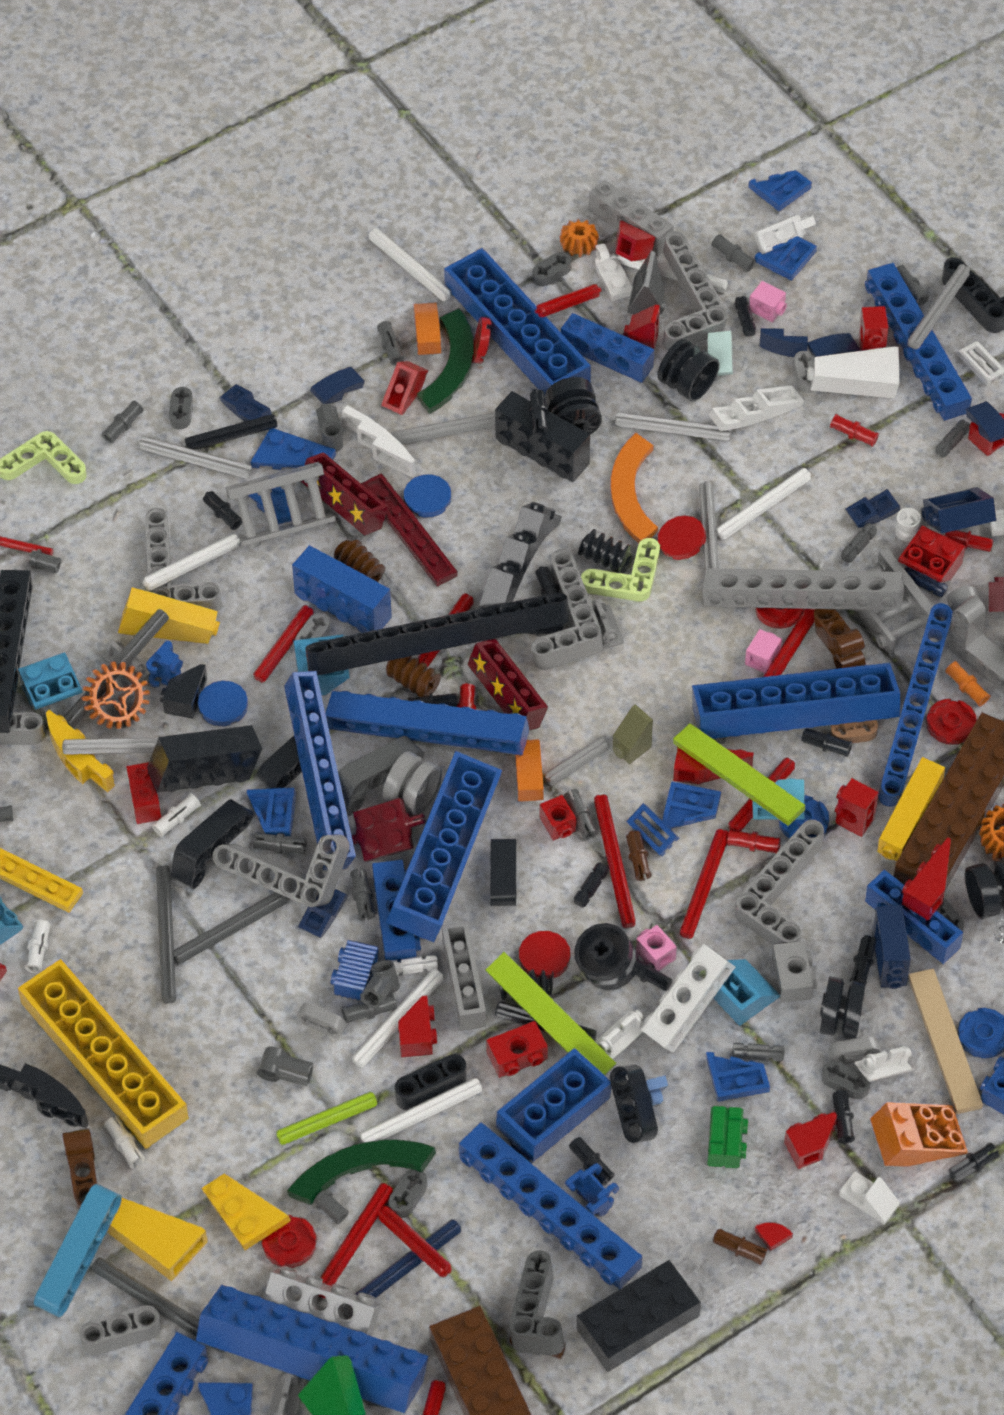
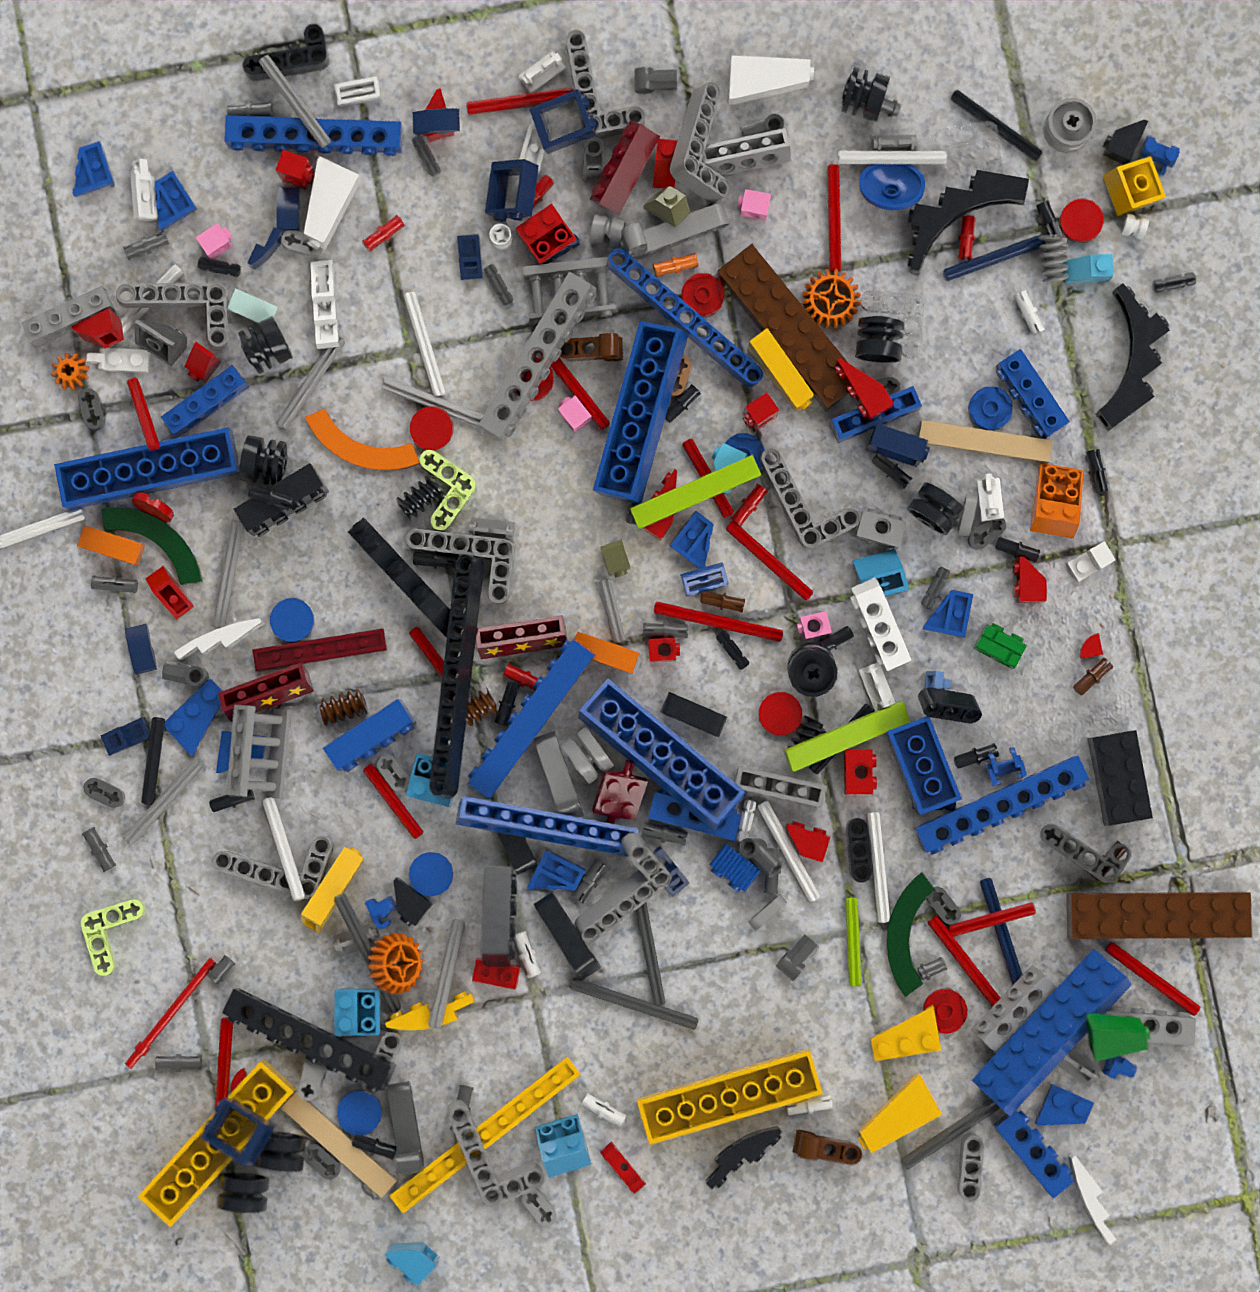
camera: 65 degrees left, 30 degrees up
(77, 1250) = (897, 1177): dark azure beam -> none

